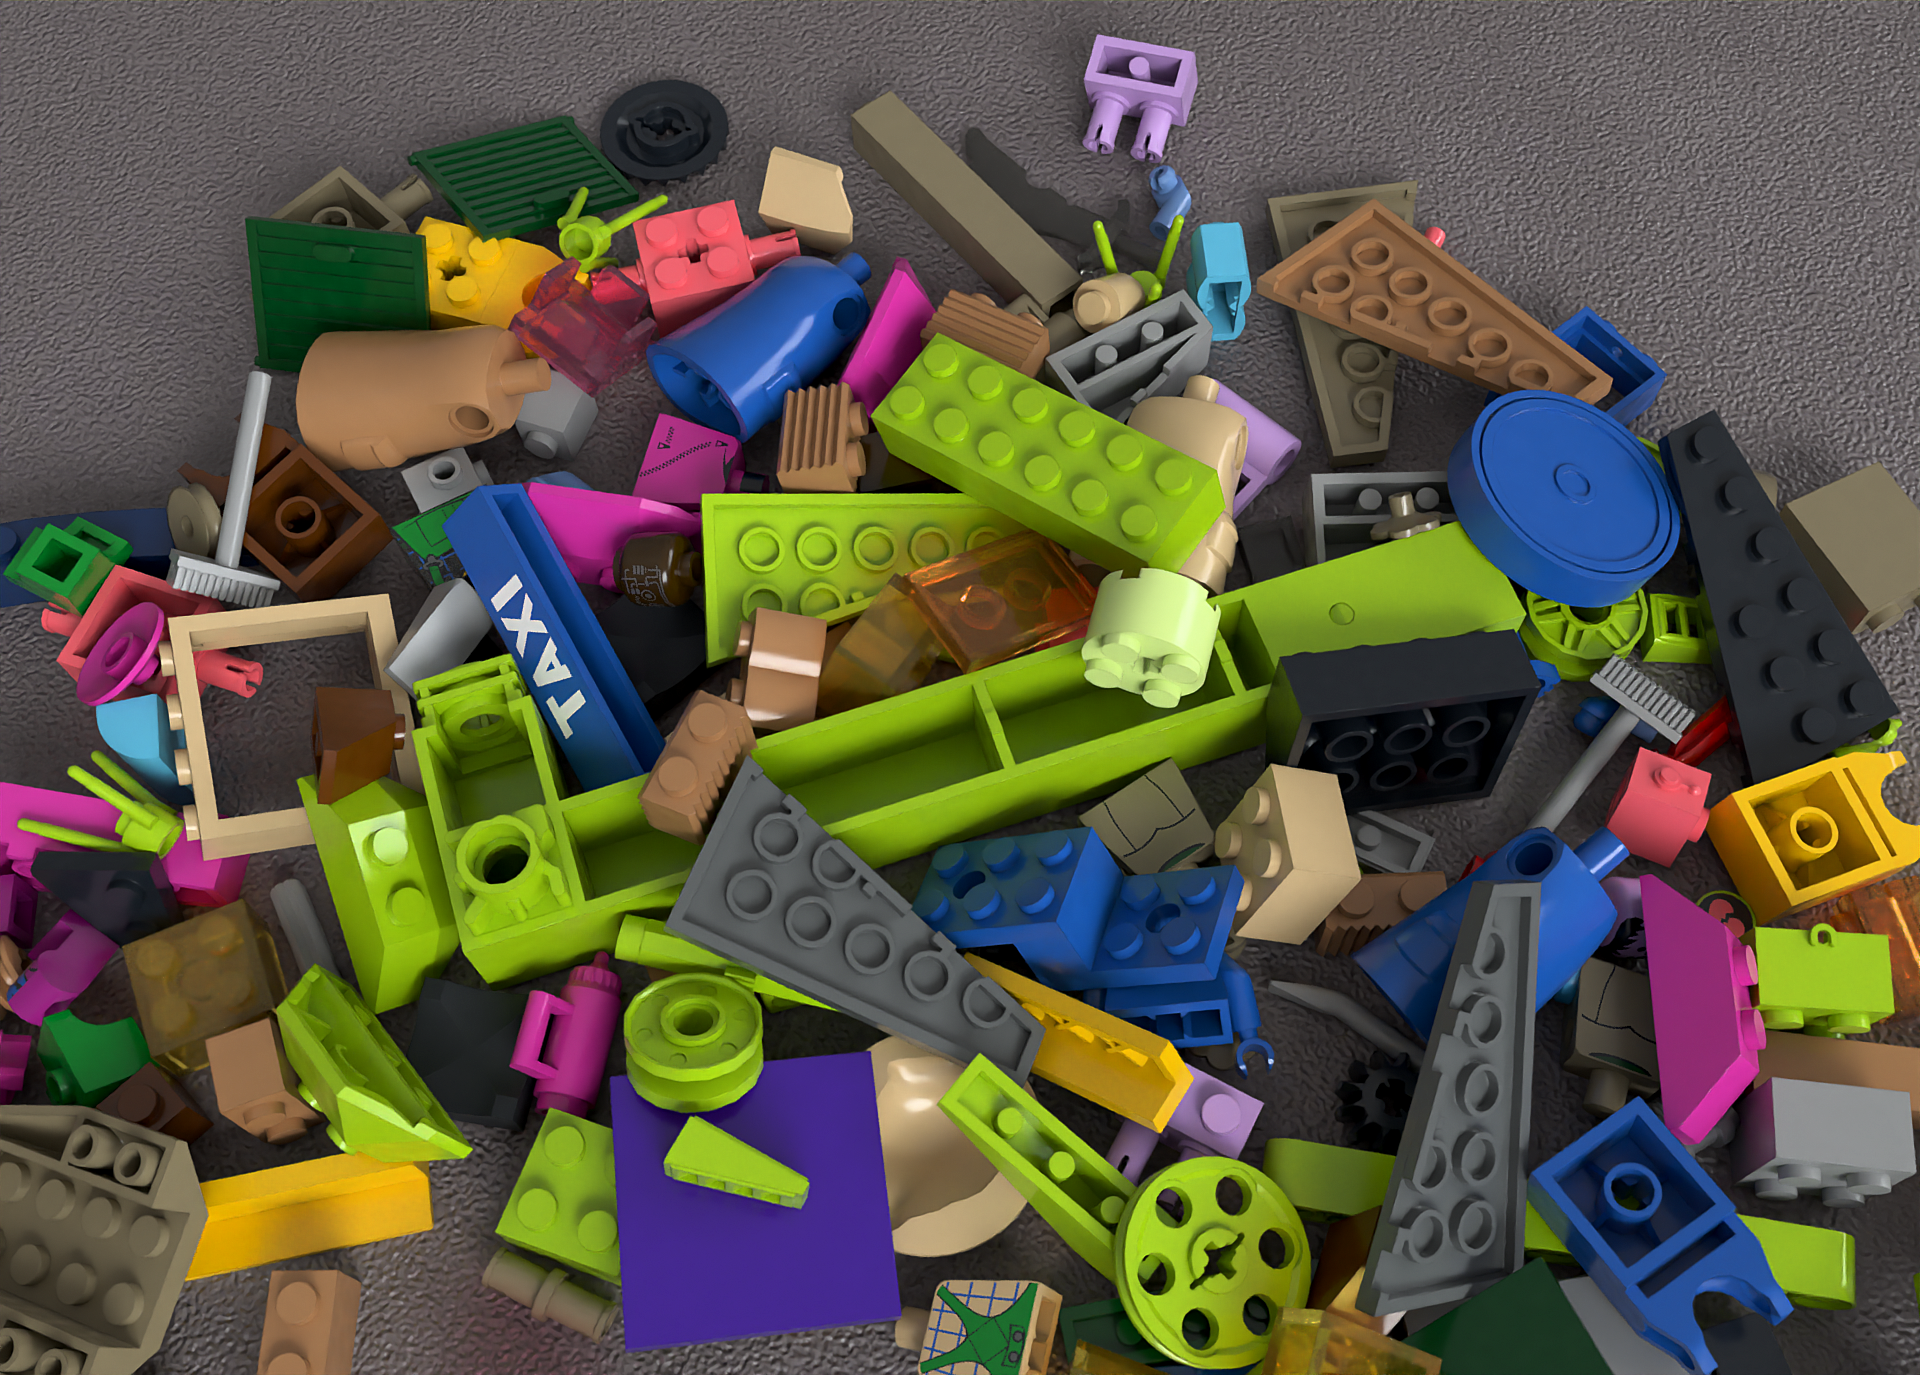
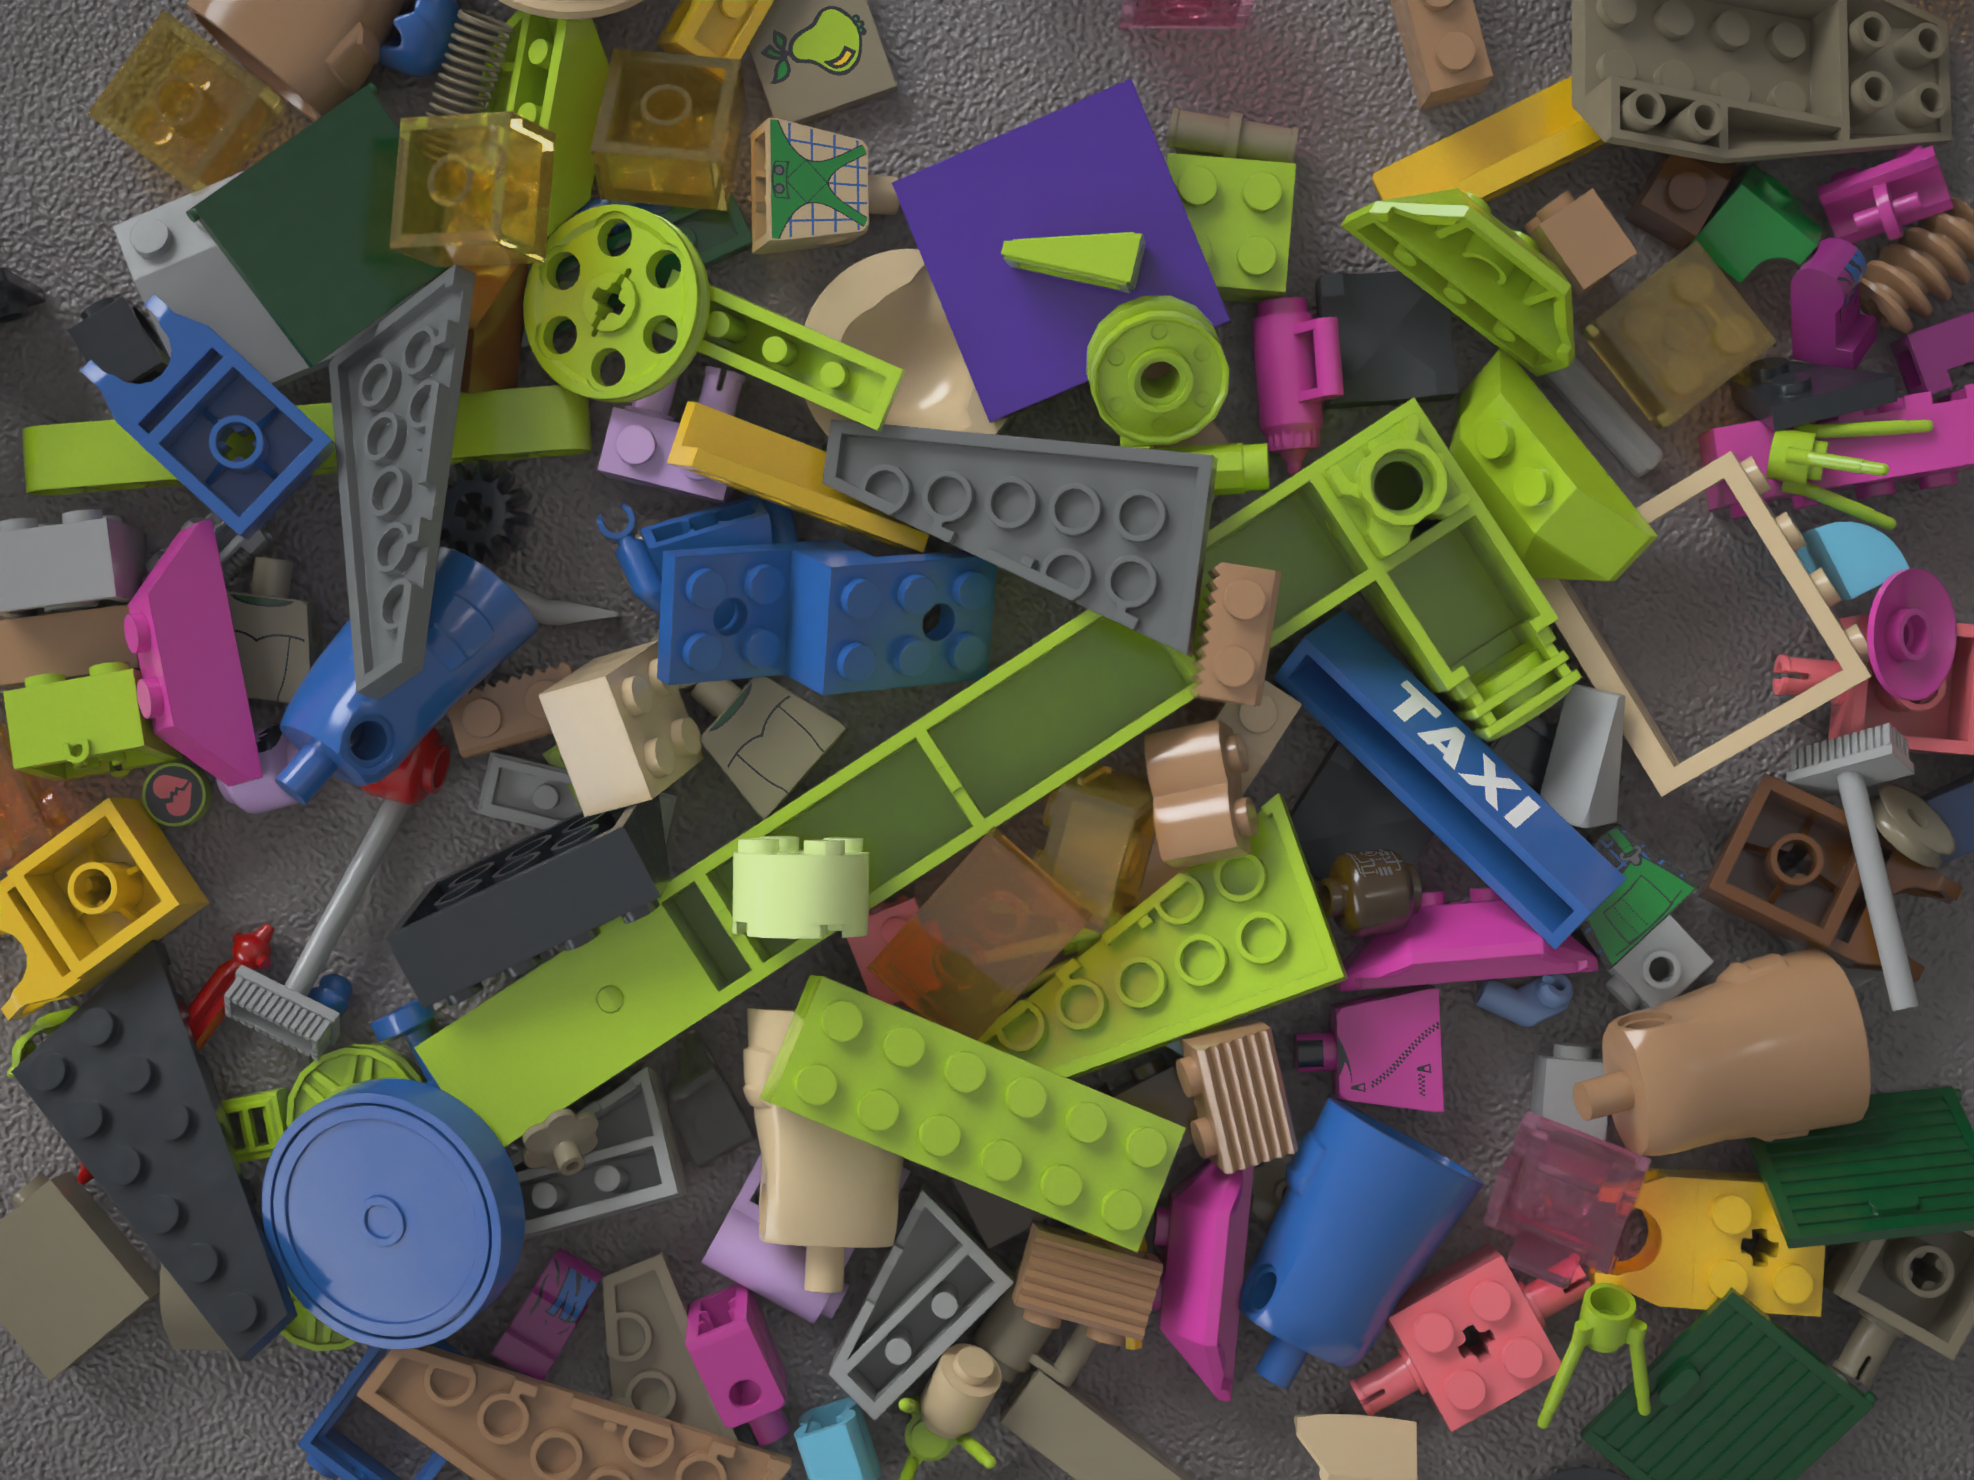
camera: 160 degrees right, 25 degrees up
(352, 739) = (1619, 595): reddish brown slope -> none
(1288, 345) = (739, 1362): none -> dark pink torso
(1431, 438) = (549, 1315): none -> magenta leg
(1658, 807) = (254, 892): coral head -> none

